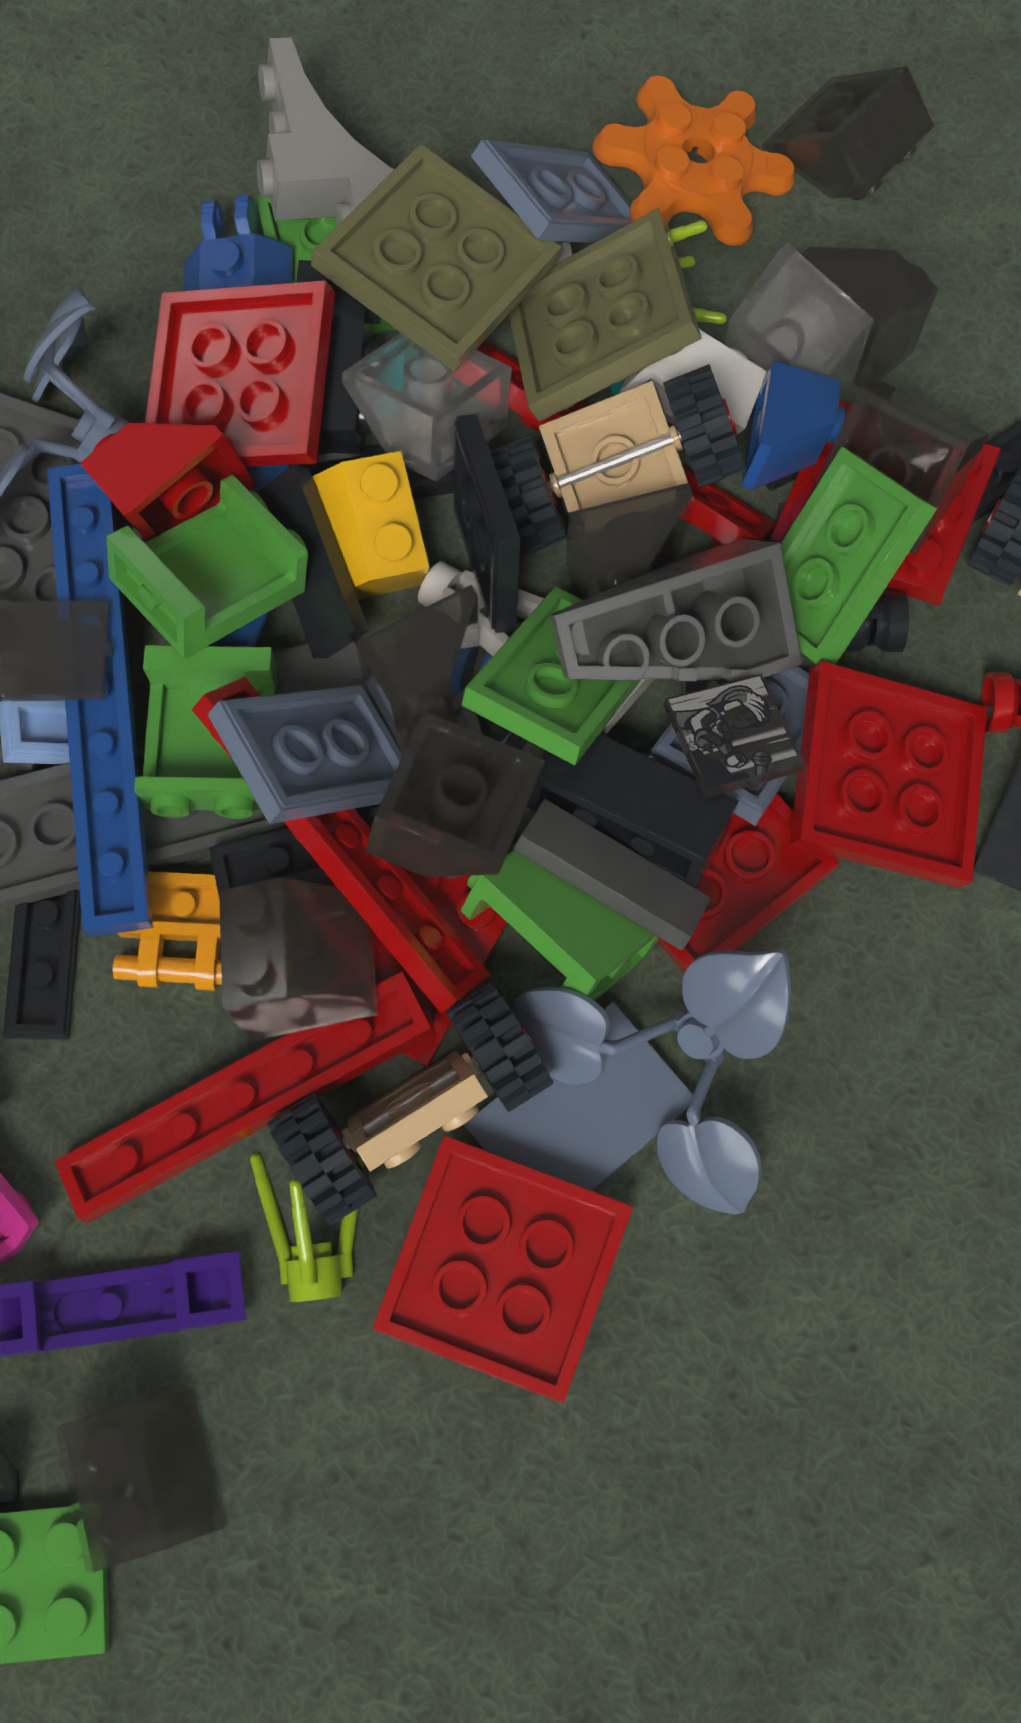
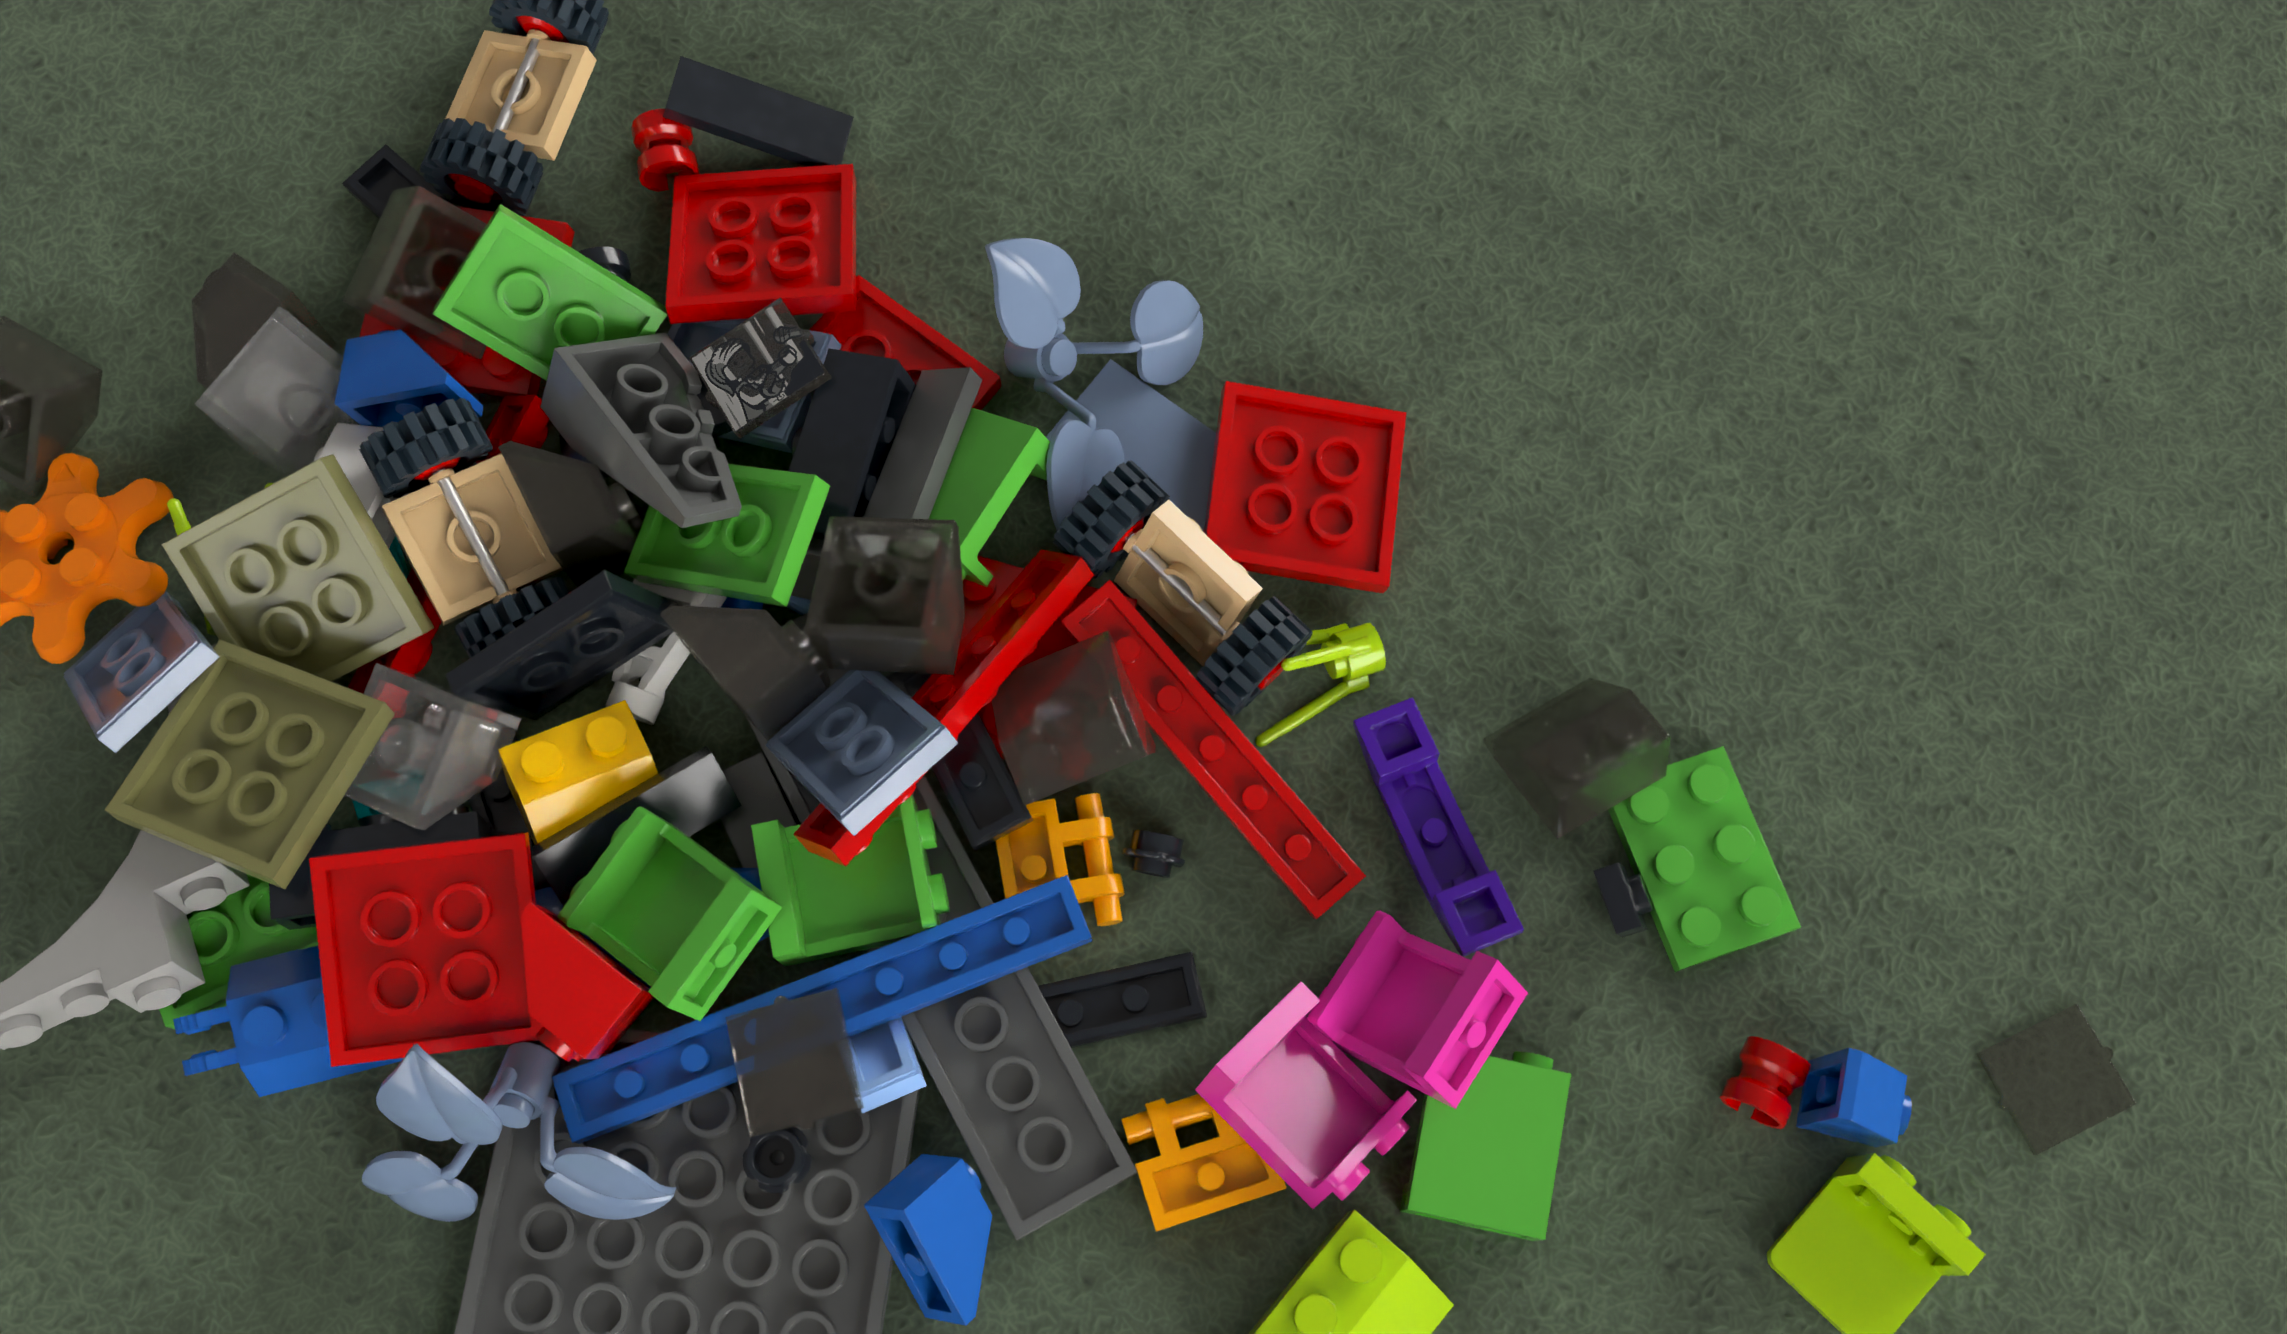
camera: 105 degrees left, 0 degrees up
(162, 1020) = (1154, 853): none -> black plate

